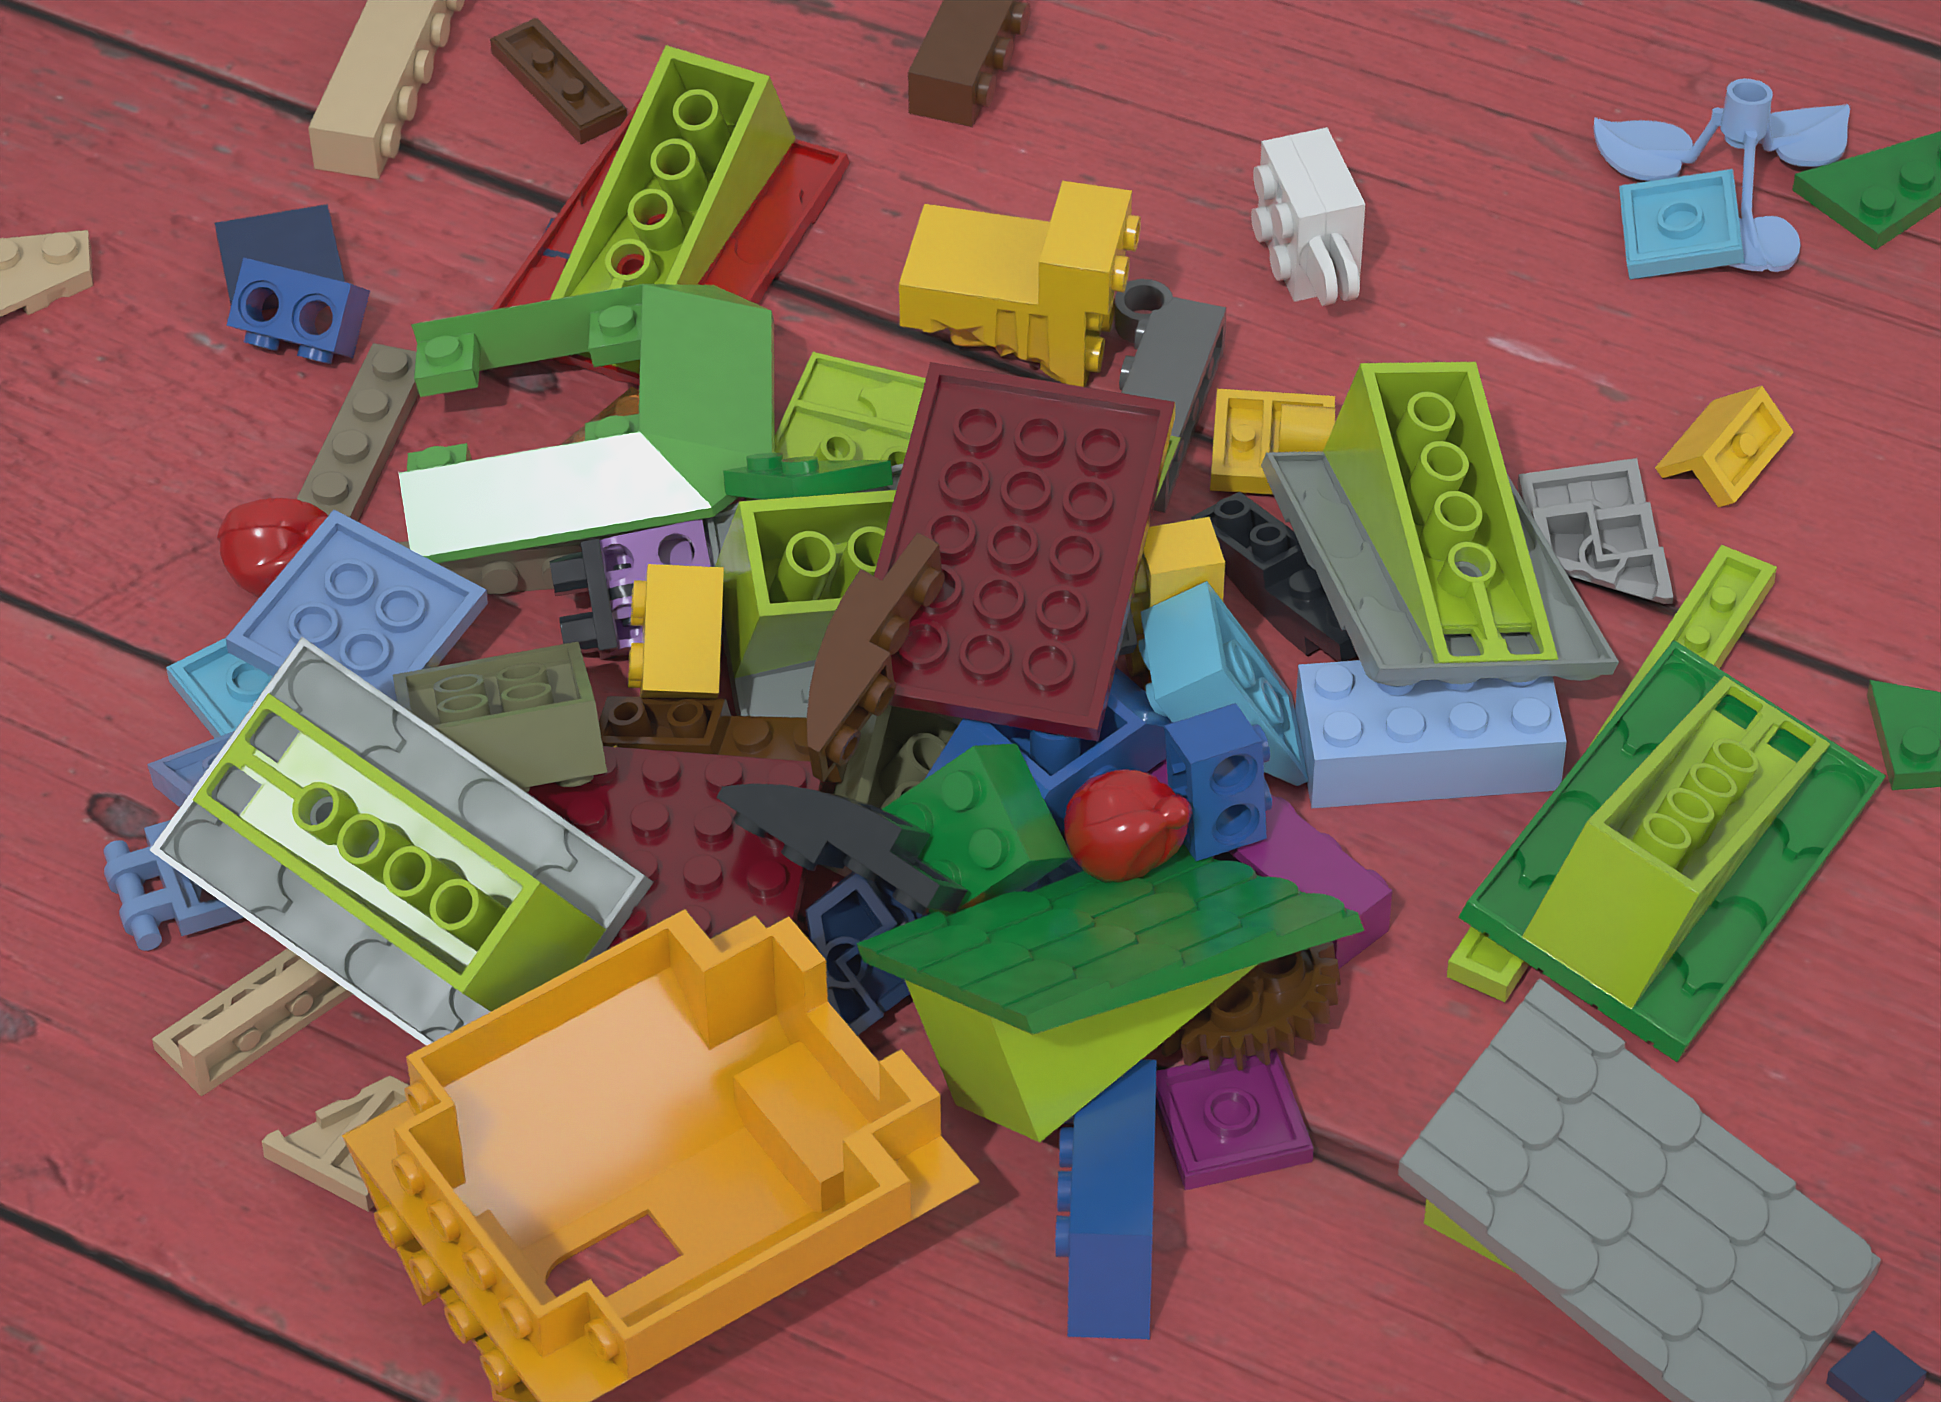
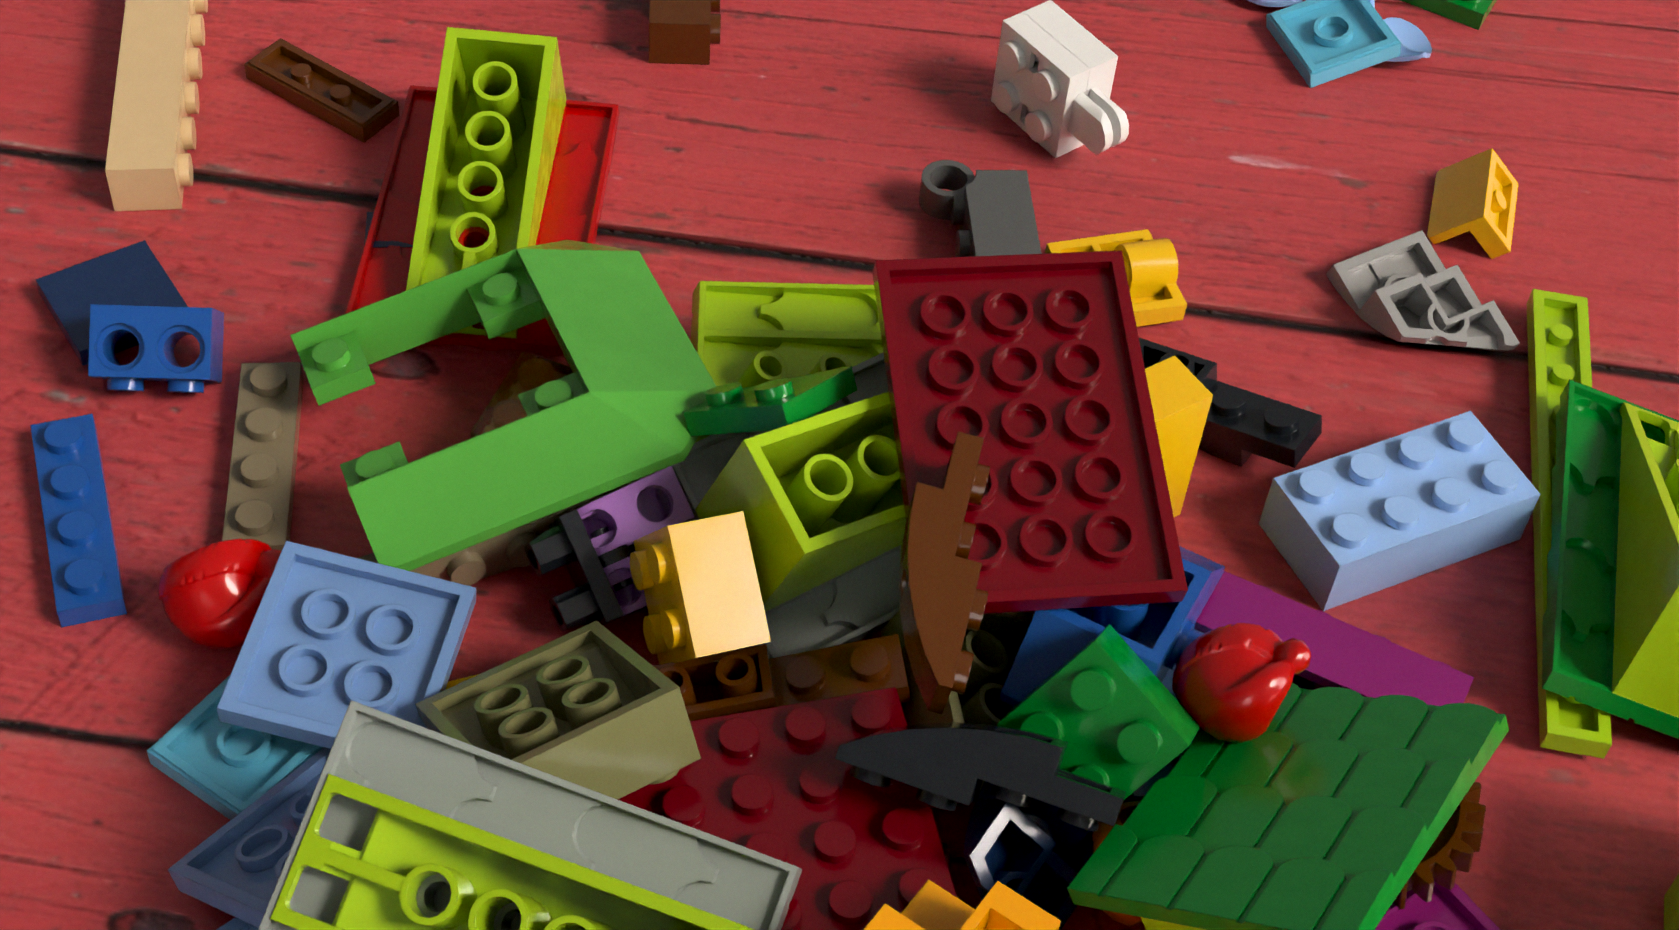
camera: 25 degrees left, 0 degrees up
(178, 455) = (77, 521): none -> blue plate
(1024, 280) = (857, 181): yellow brick -> none
(1207, 662) = (1226, 513): medium azure slope -> none
(1220, 771) = (1303, 596): blue brick -> none
(1430, 538) = (1331, 333): lime piece -> none

